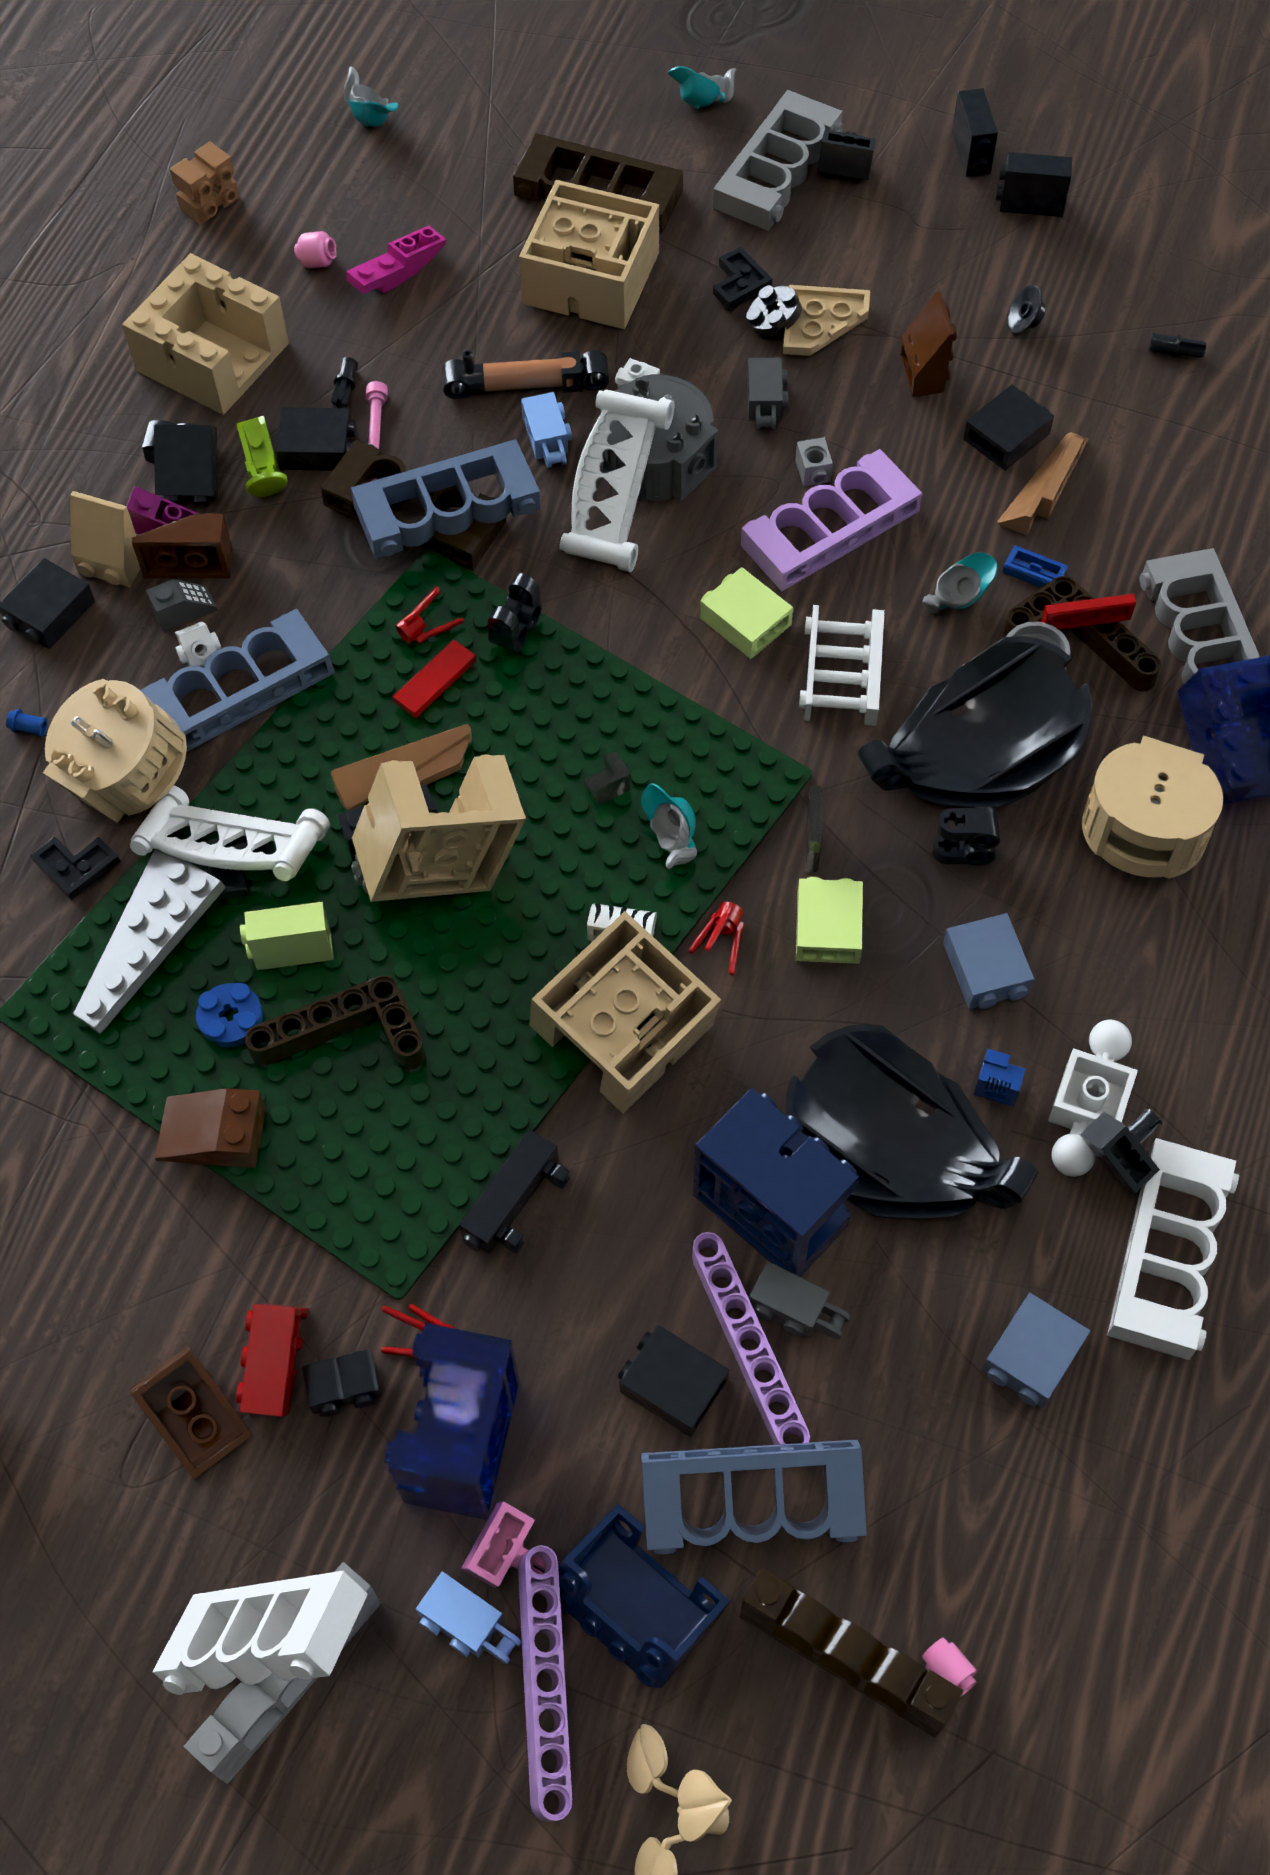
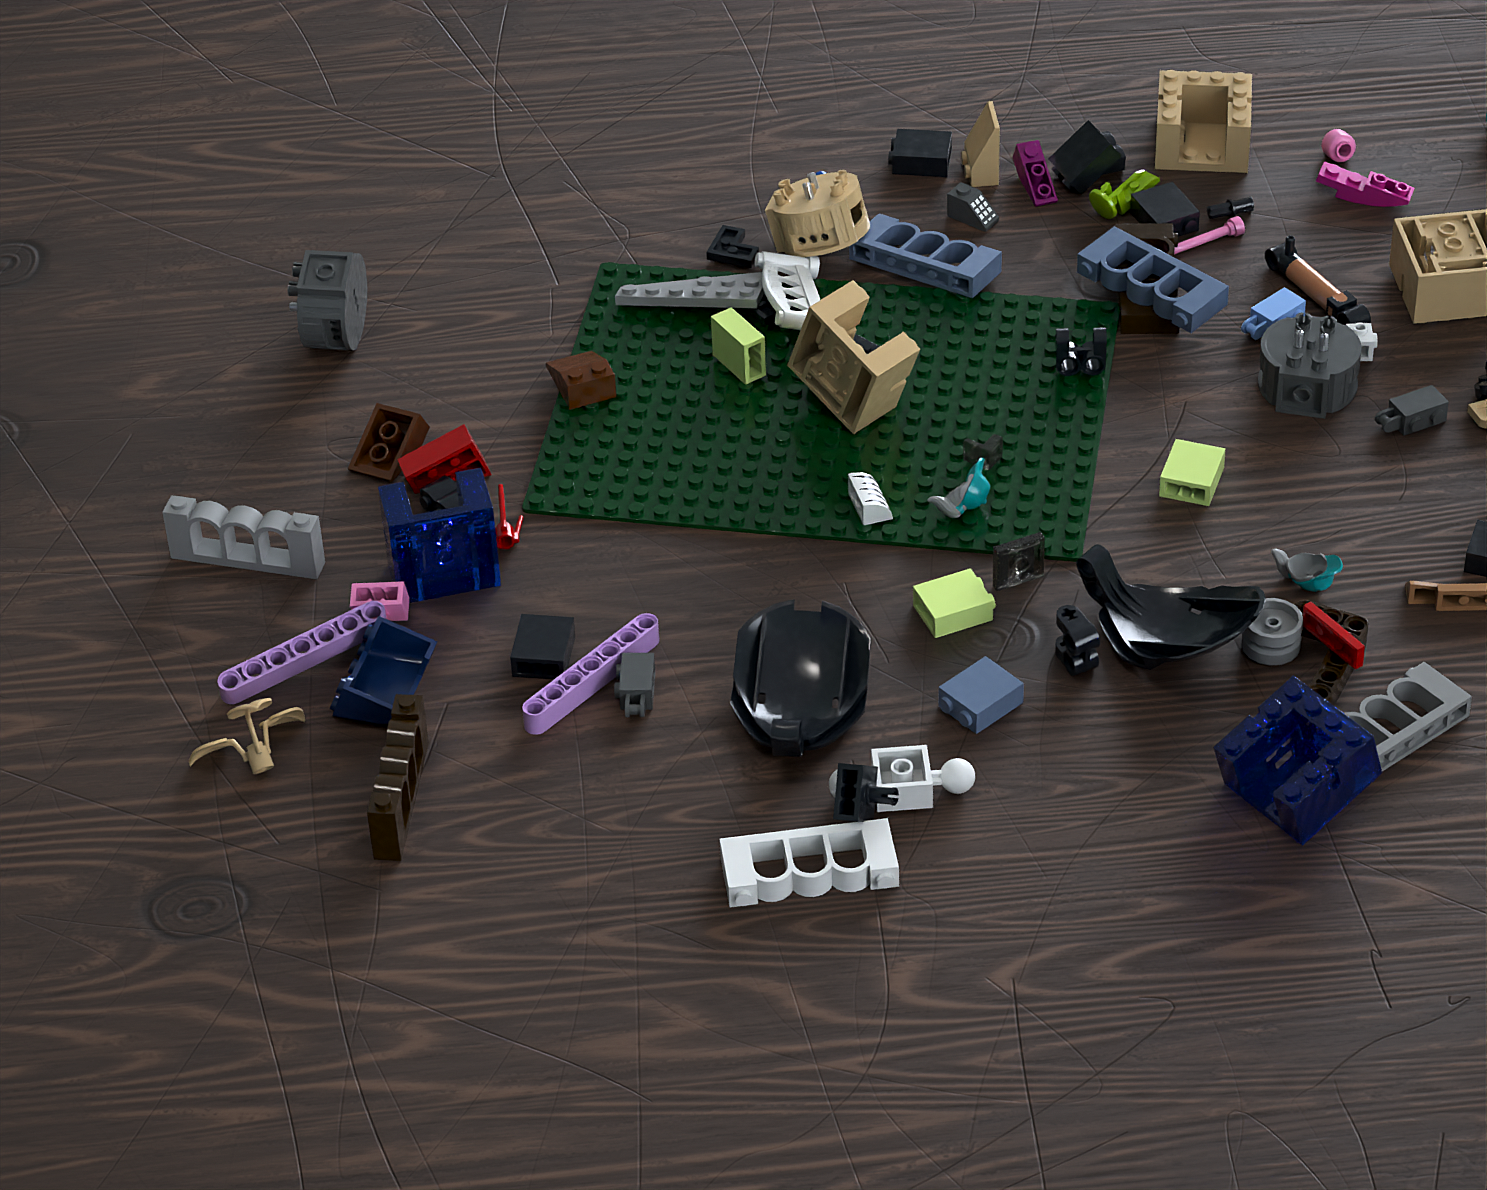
camera: 65 degrees right, 20 degrees down
(186, 549) = (1014, 189): reddish brown slope -> none
(190, 638) = (941, 222): white brick -> none
(205, 182) = (1344, 67): medium nougat brick -> none
(220, 999) = (668, 352): blue plate -> none
(261, 1630) = (254, 492): white fence -> none
(341, 1022) = (717, 407): dark brown beam -> none
(412, 625) = (1036, 313): red plant -> none
(431, 756) = (932, 361): medium nougat wedge -> none
(434, 678) = (1003, 342): red tile -> none
(464, 1619) = (325, 602): light blue brick -> none
(509, 1192) = (628, 525): black brick -> none
(621, 984) = (809, 487): tan piece -> none
(640, 418) = (1290, 326): white piece -> none
(725, 922) = (915, 552): red plant -> none
(773, 1201) = (700, 619): dark blue piece -> none
(814, 461) = (1368, 459): light grey brick -> none
(843, 1492) = (511, 740): sand blue fence -> none
(867, 679) = (1190, 555): white fence -> none
(874, 475) = (1270, 457): lavender fence -> none
(950, 1664) = (422, 842): bright pink brick -> none
(999, 1079) = (877, 716): blue piece -> none
(1032, 572) = (1376, 629): blue tile -> none
(1035, 1351) = (678, 814): sand blue brick -> none
(1152, 809) = (1169, 720): tan piece -> none

